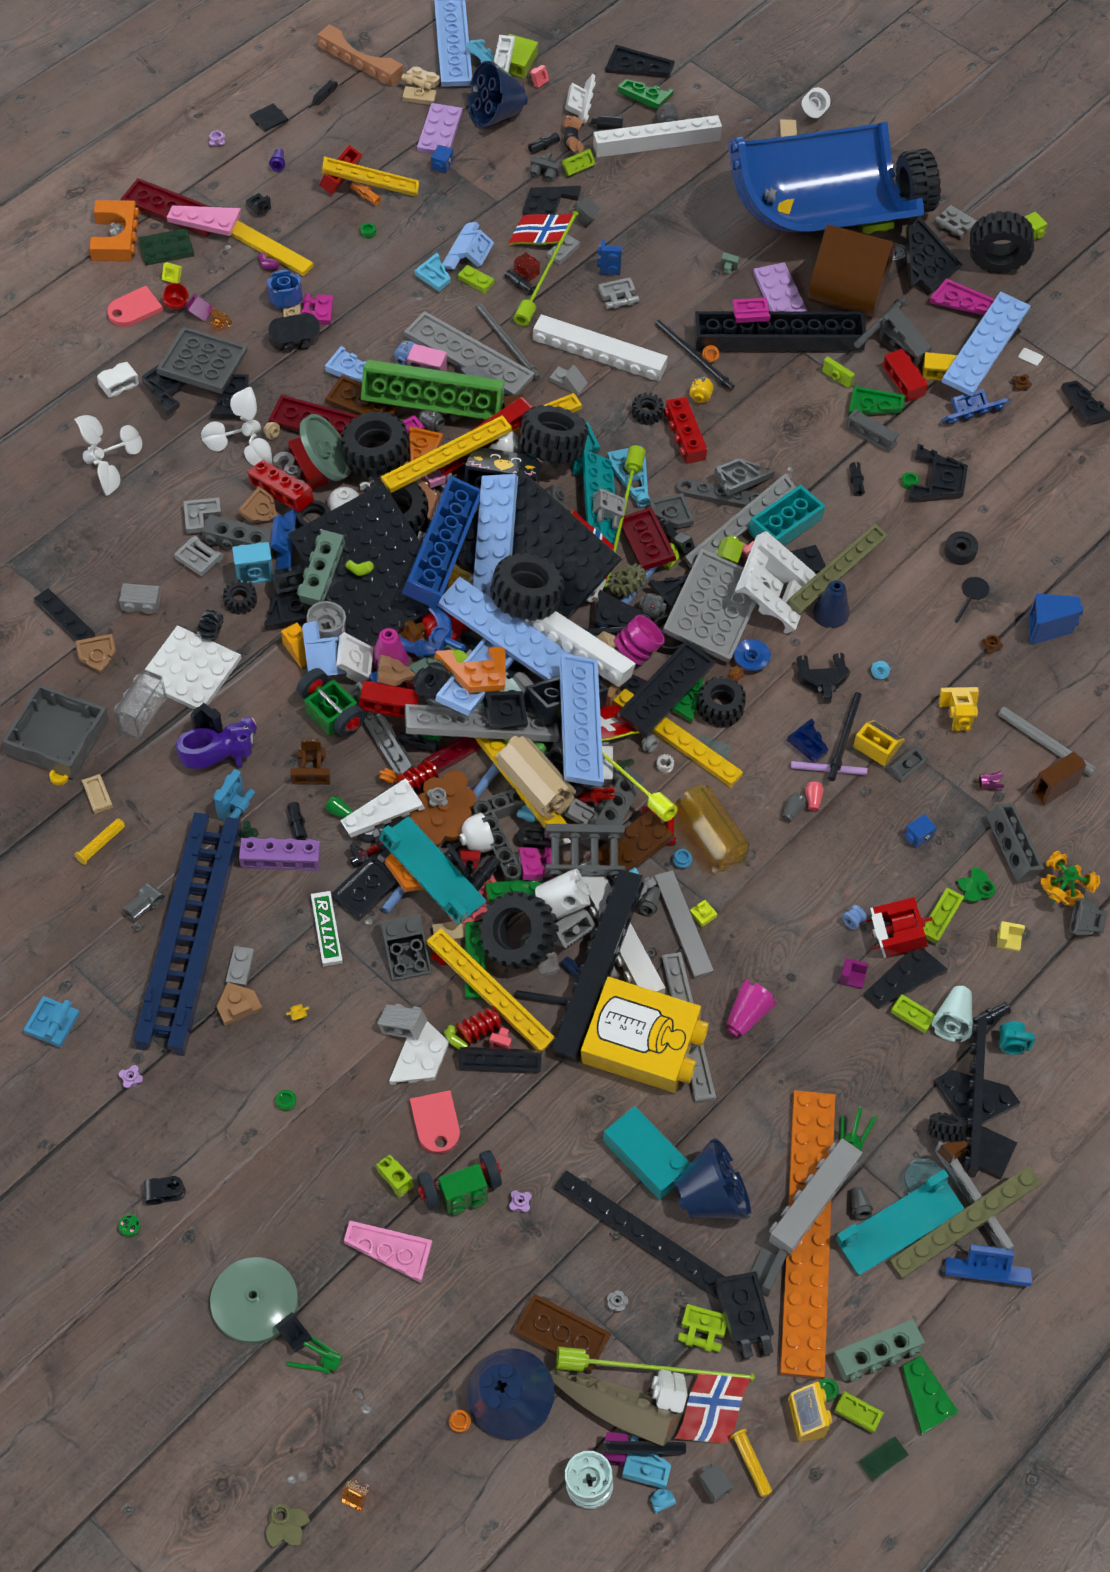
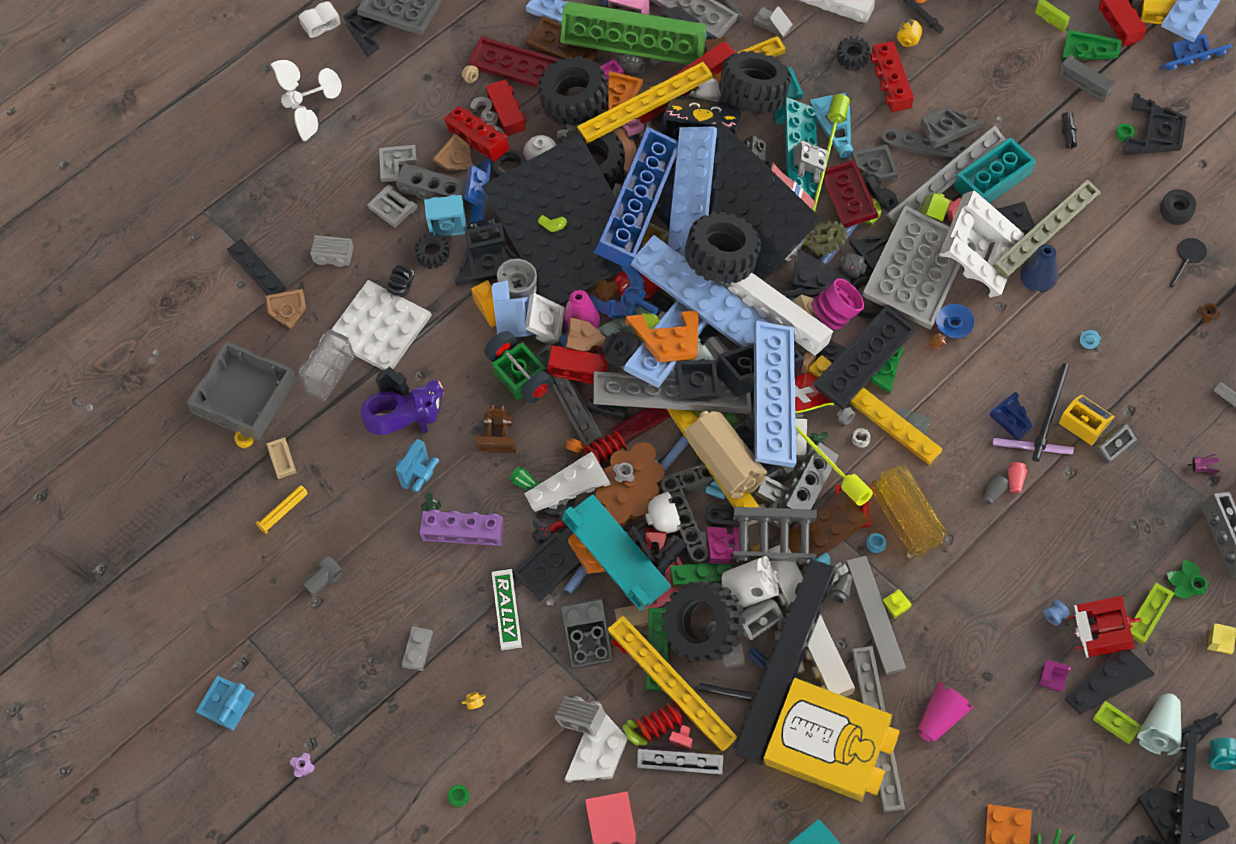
camera: 10 degrees right, 5 degrees up
(201, 943) = (379, 622): dark blue ladder -> none
(223, 408) = (433, 41): black wing -> none
(237, 1003) = (413, 688): medium nougat plate -> none
(243, 405) = (439, 49): white plant -> none
(297, 821) = (480, 492): black pin -> none
(324, 447) = (520, 94): sand green dish -> none
(325, 541) = (516, 196): sand green brick -> none
(597, 795) = (789, 474): red pin -> none
(721, 689) = (923, 358): black tyre -> none
(823, 680) = (1029, 350): black connector -> none
(920, 831) = (1128, 519): blue brick -> none
(961, 711) = (1177, 381): yellow tile -> none

